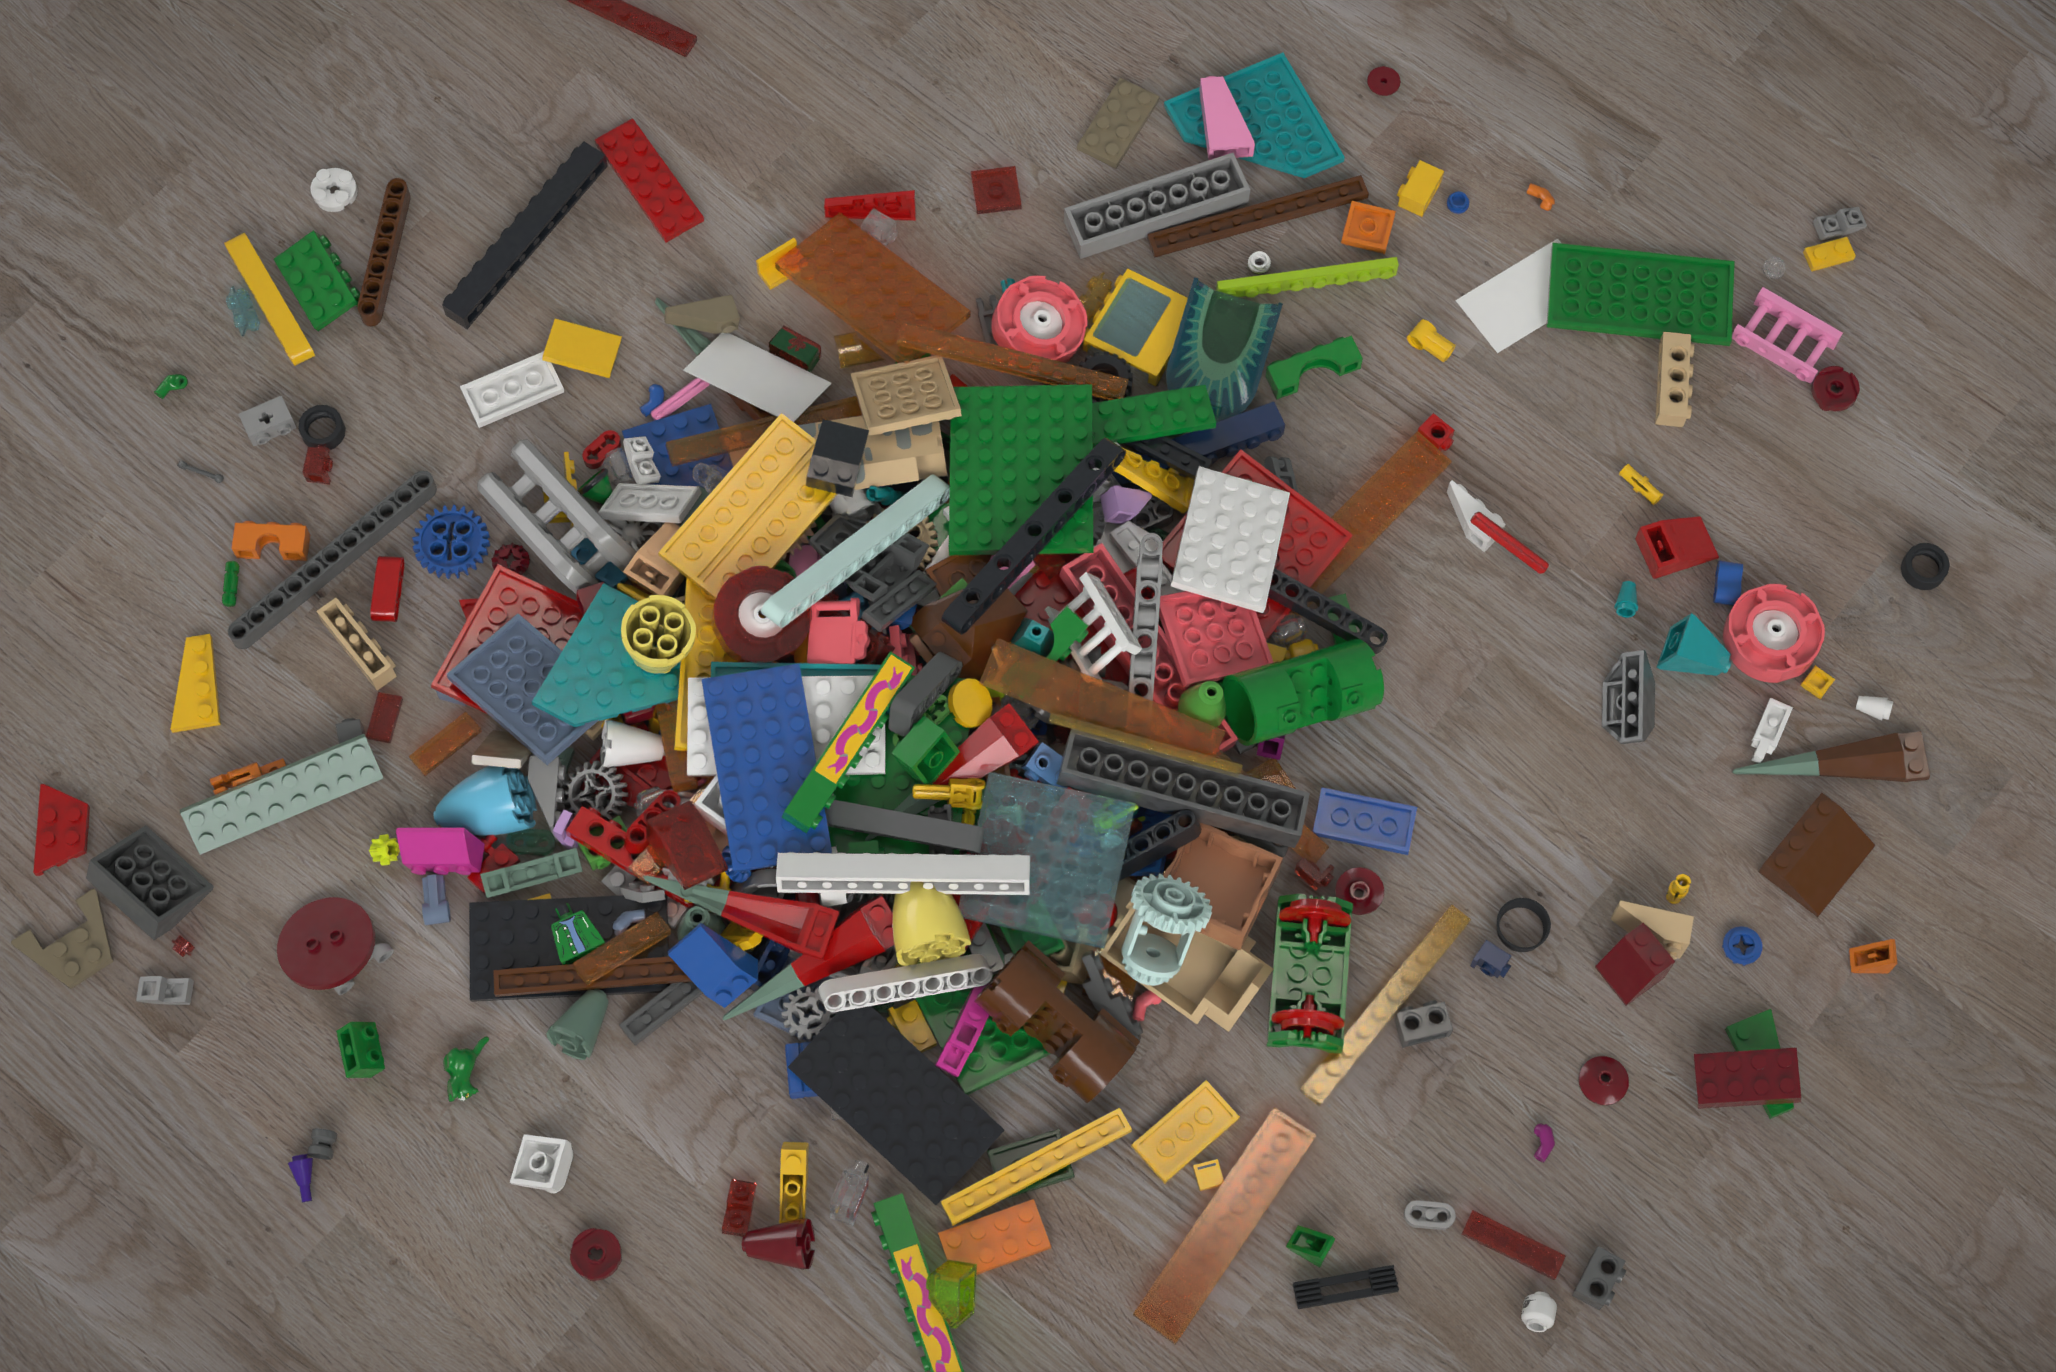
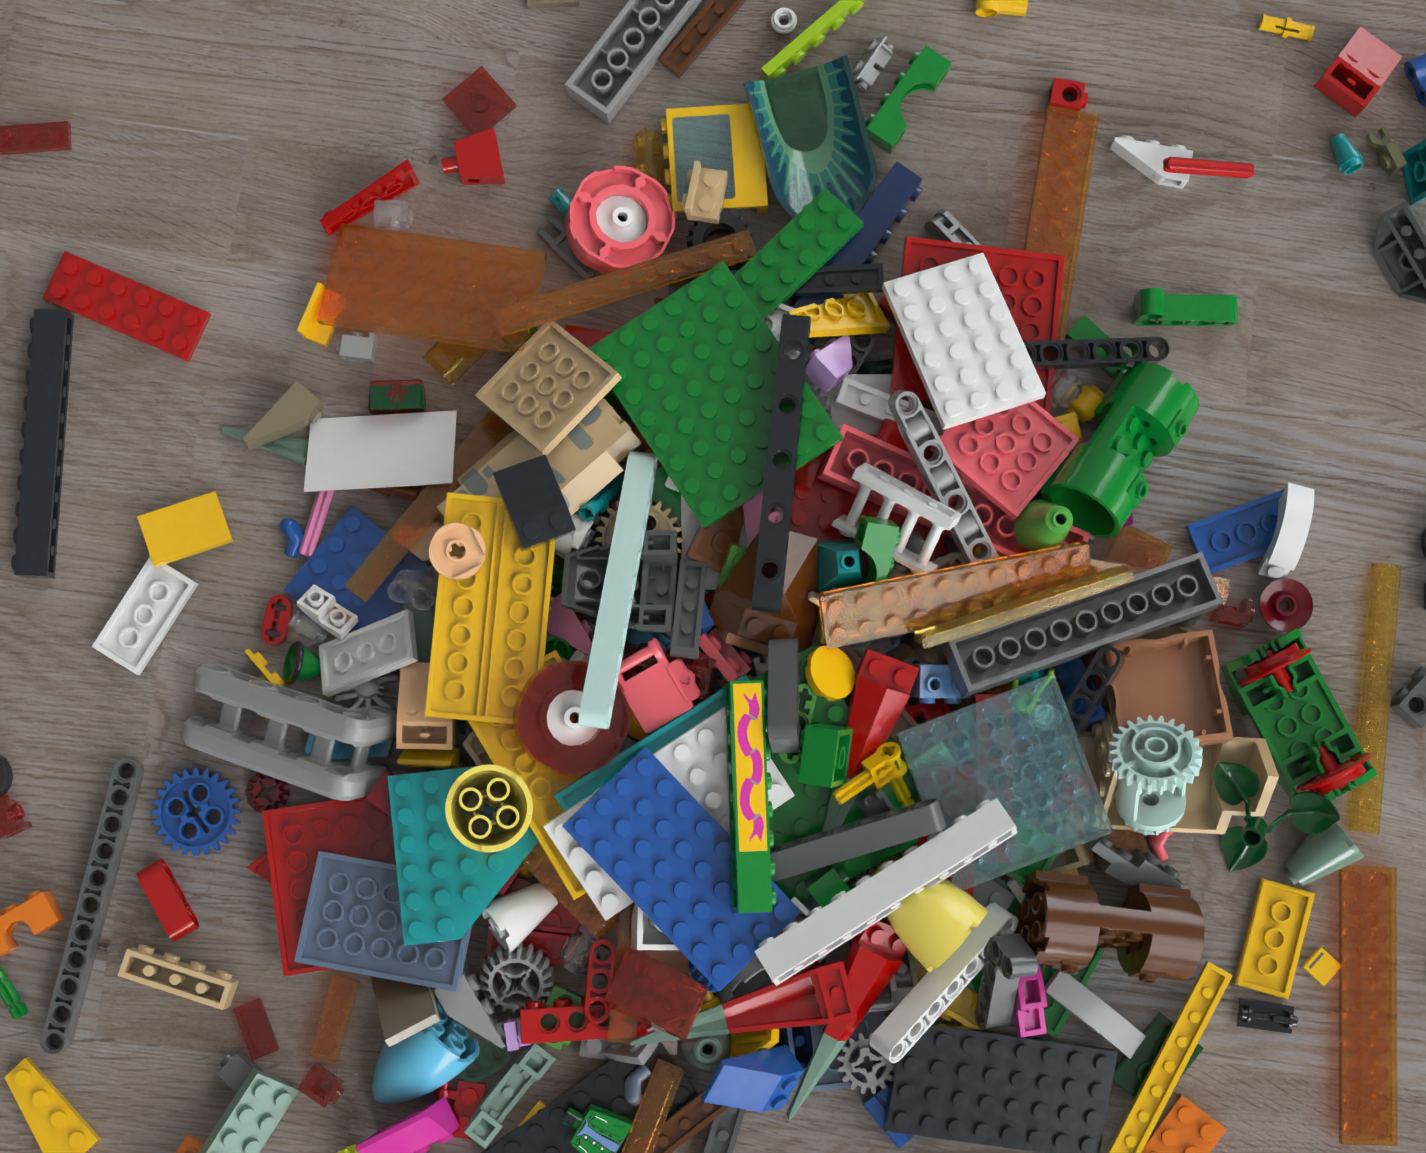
camera: 35 degrees left, 15 degrees up
(401, 775) = (312, 1085): none -> clear red brick
(762, 467) = (462, 536): none -> light nougat plate
(792, 301) = (358, 347): none -> light grey brick
(962, 992) = (1005, 963): none -> dark grey beam
(967, 226) = (476, 159): none -> red torso
(1006, 1090) = (1094, 1013): none -> light grey slope
(1113, 338) = (704, 193): none -> tan bracket
(1139, 1183) = (1266, 1016): none -> black hinge
(1206, 1046) = (1246, 844): none -> dark green plant
(1264, 1086) = (1321, 855): none -> sand green cone
(1295, 330) = (875, 53): none -> light grey hinge
(1392, 833) = (1291, 531): none -> white arch
(1422, 633) = (1161, 309): none -> green beam
(1660, 621) = (1389, 155): none -> olive plate

